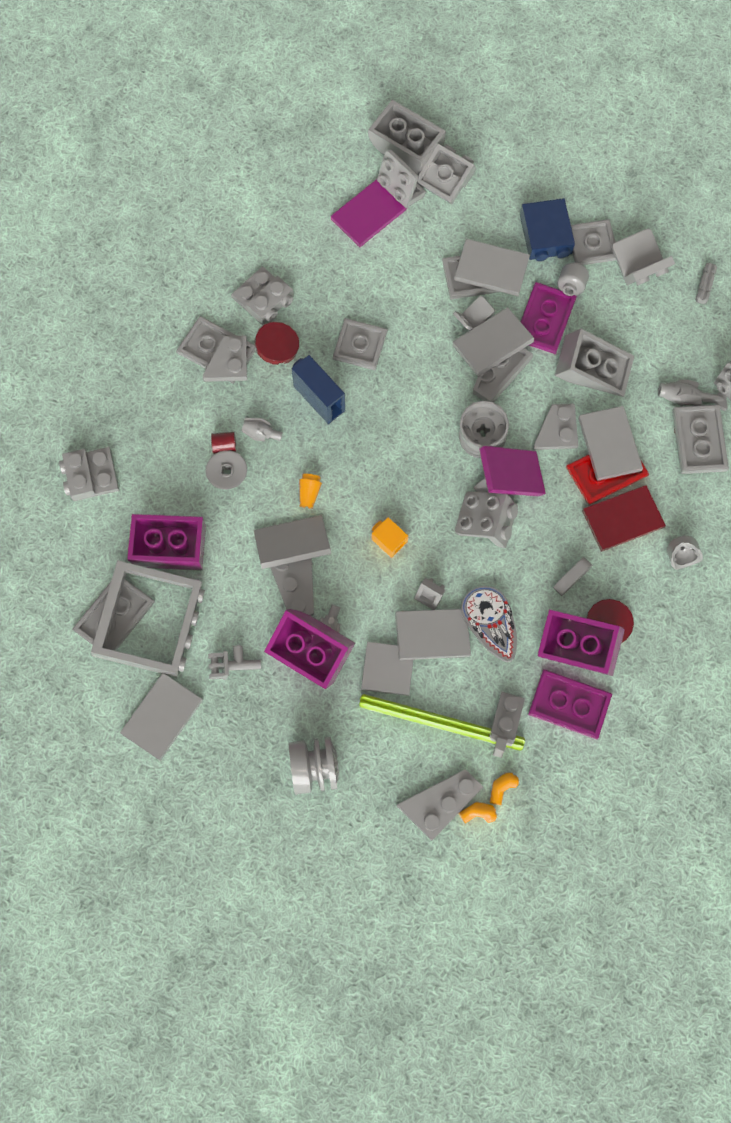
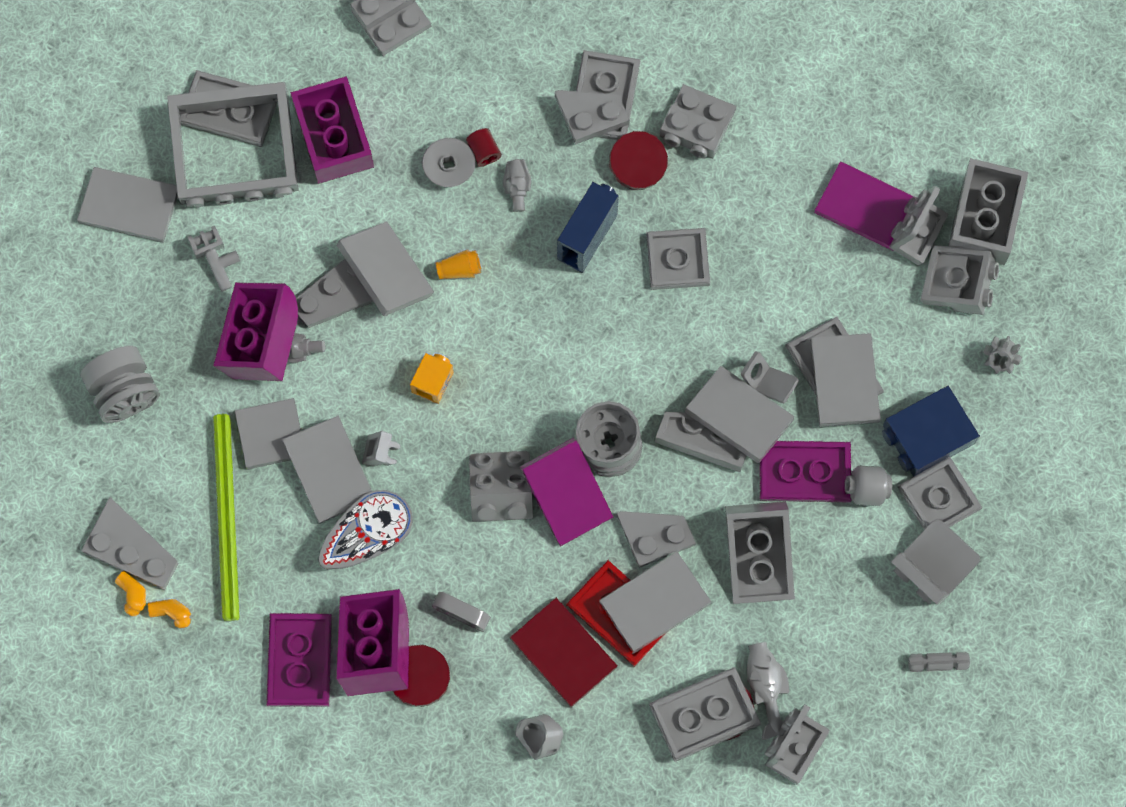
camera: 70 degrees right, 0 degrees up
(506, 722) = (247, 588): light grey hinge -> none
(509, 167) = (1007, 354): none -> light grey gear

